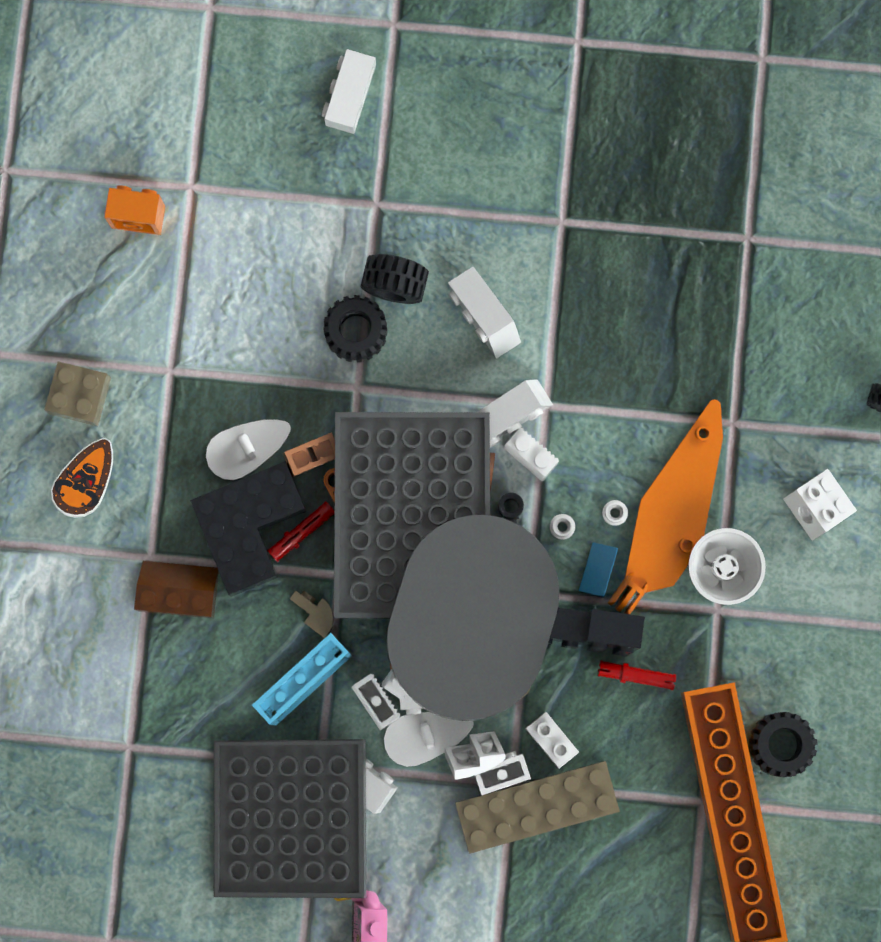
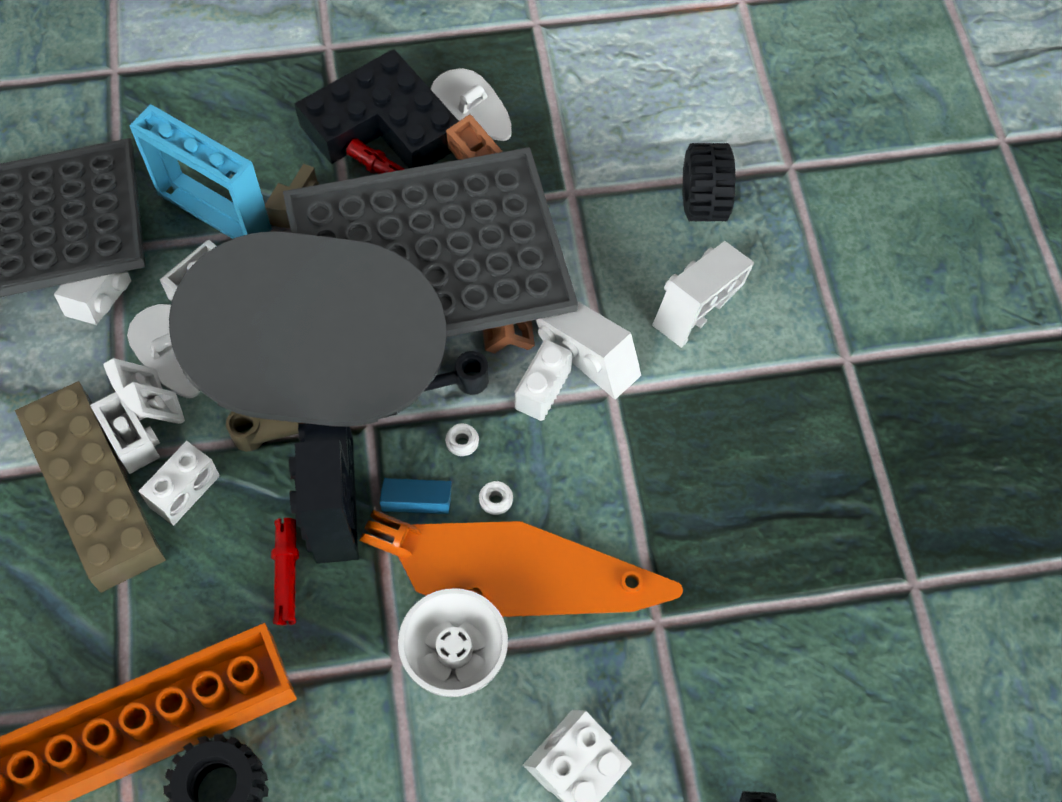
camera: 75 degrees right, 20 degrees down
(177, 589) = (291, 65): reddish brown slope -> none
(349, 91) = (908, 108): white brick -> none
(355, 307) = (641, 147): black tyre -> none

